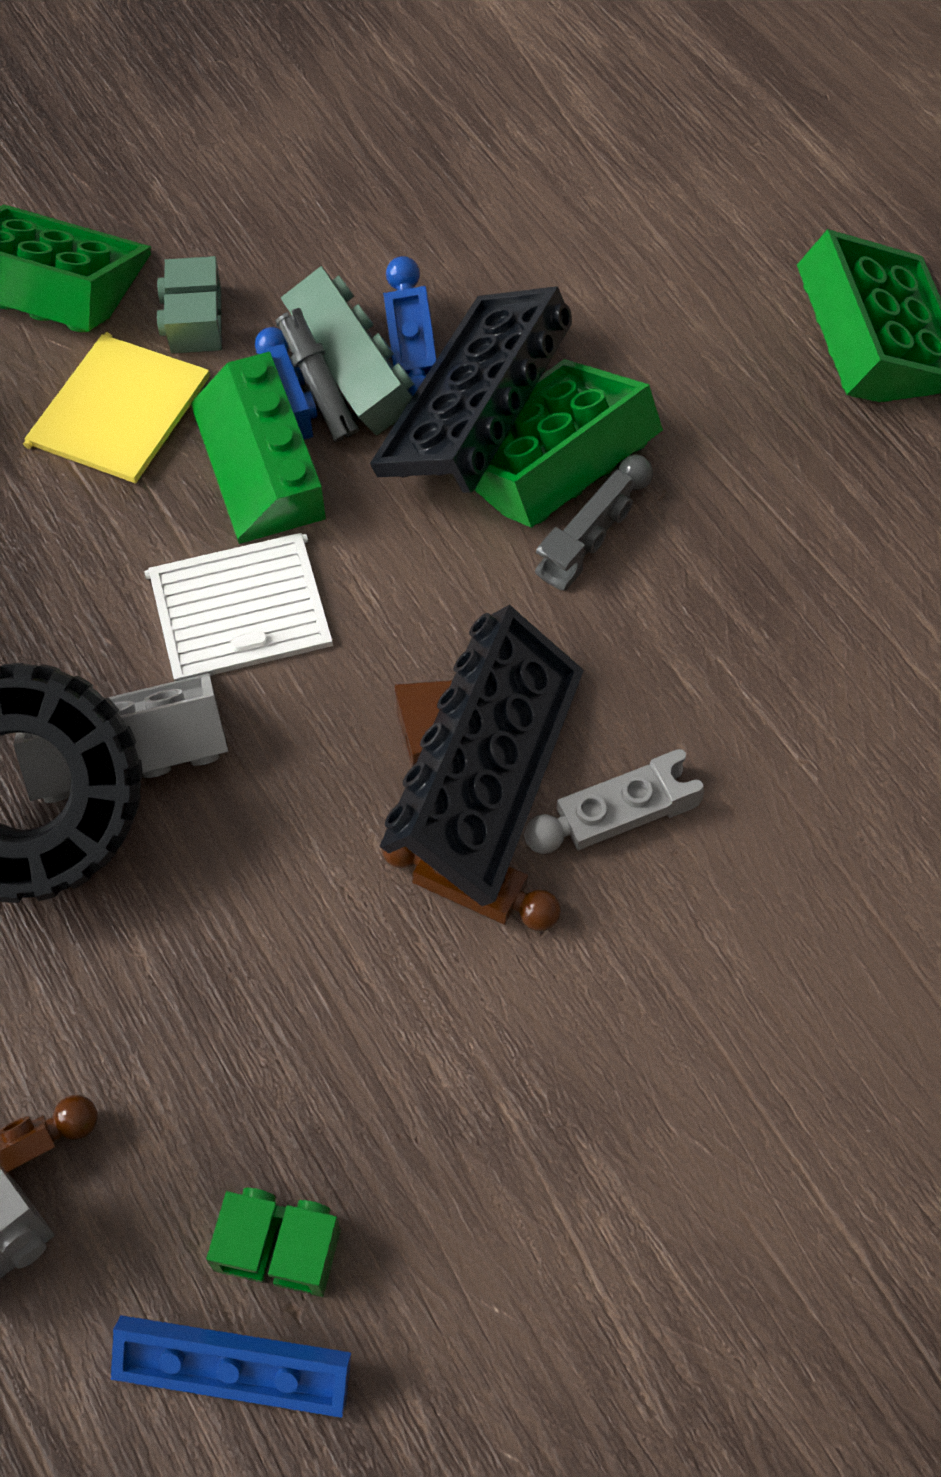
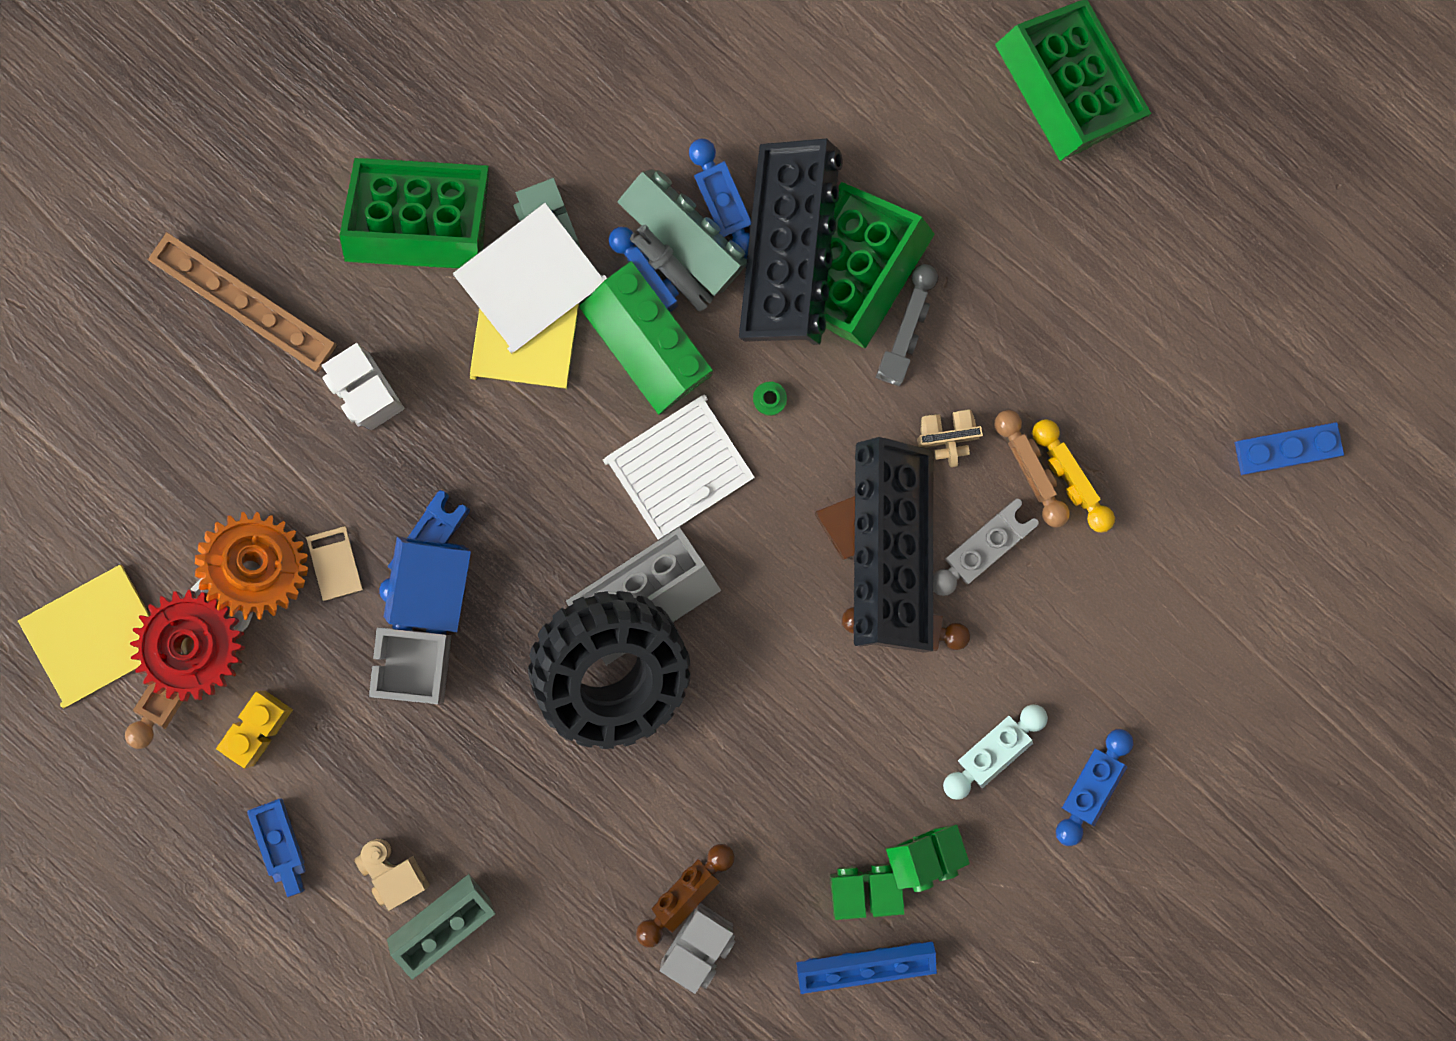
camera: 20 degrees left, 25 degrees up
(139, 343) = (529, 277): none -> white piece
(377, 1208) = (928, 858): none -> green piece
(387, 566) = (762, 406): none -> green plate
(546, 1090) = (995, 751): none -> light aqua plate
(611, 658) = (964, 431): none -> tan hips
(686, 1192) = (1094, 787): none -> blue plate
(721, 742) = (1041, 481): none -> medium nougat plate
(774, 761) = (1080, 489): none -> yellow plate

